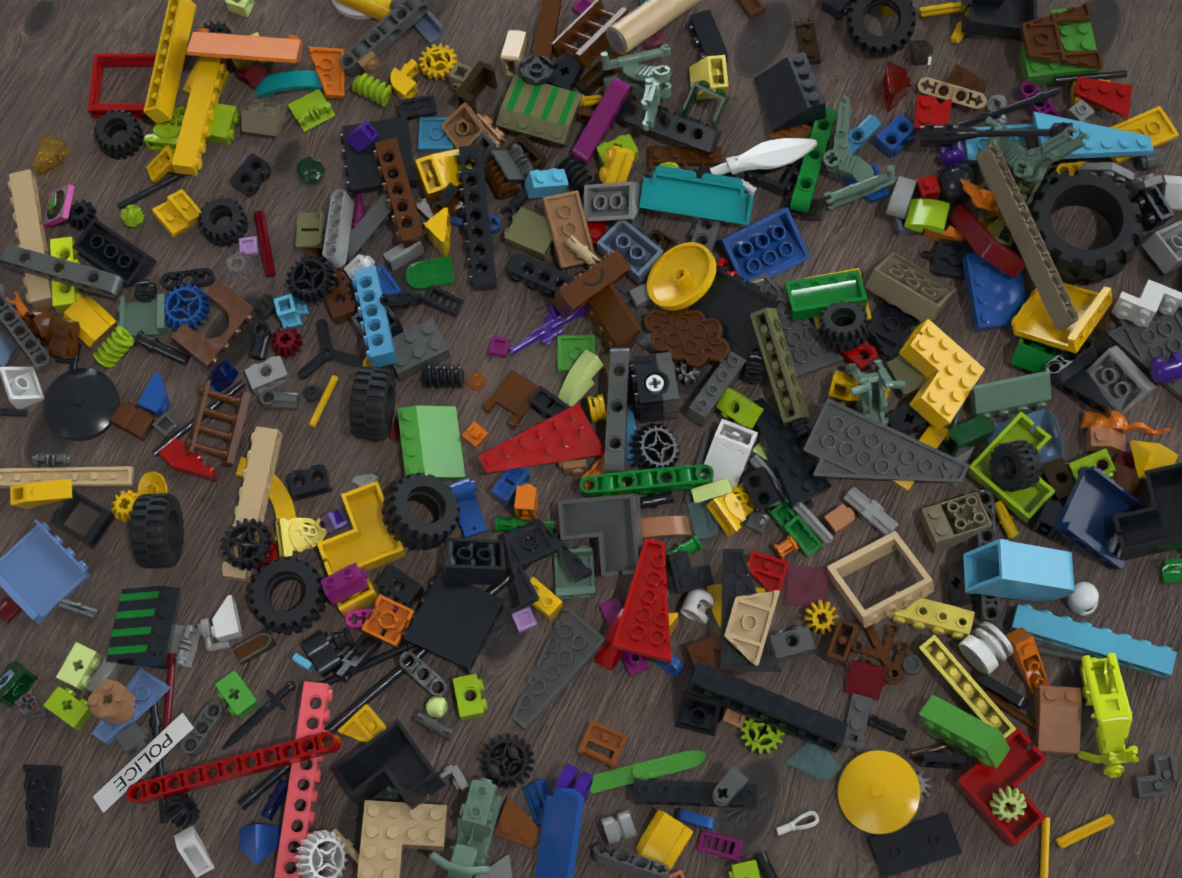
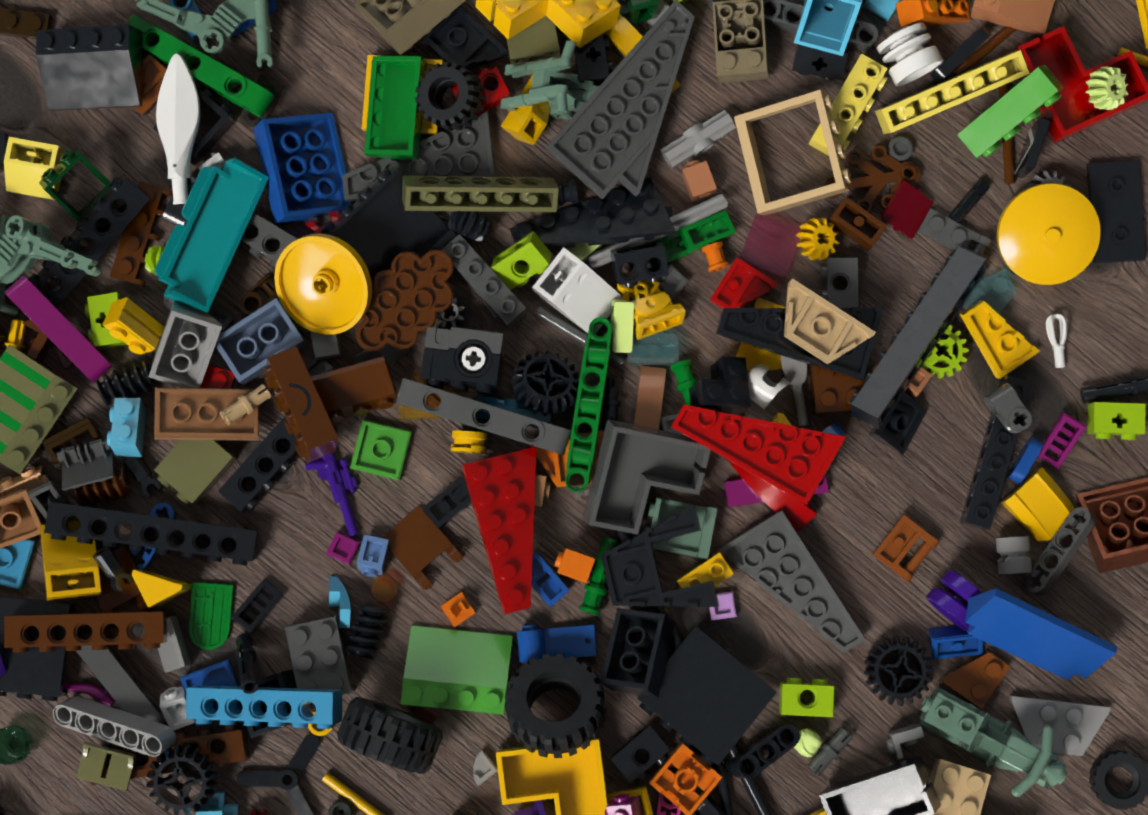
camera: 80 degrees left, 15 degrees up
(460, 352) = (339, 597): none -> medium azure slope
(498, 365) = (372, 555): none -> medium blue bracket
(580, 378) = (423, 455): yellowish green slope -> none
(647, 770) = (947, 502): bright green piece -> none
(711, 629) = (796, 373): none -> light grey piece
(783, 774) = (998, 341): none -> yellow wing

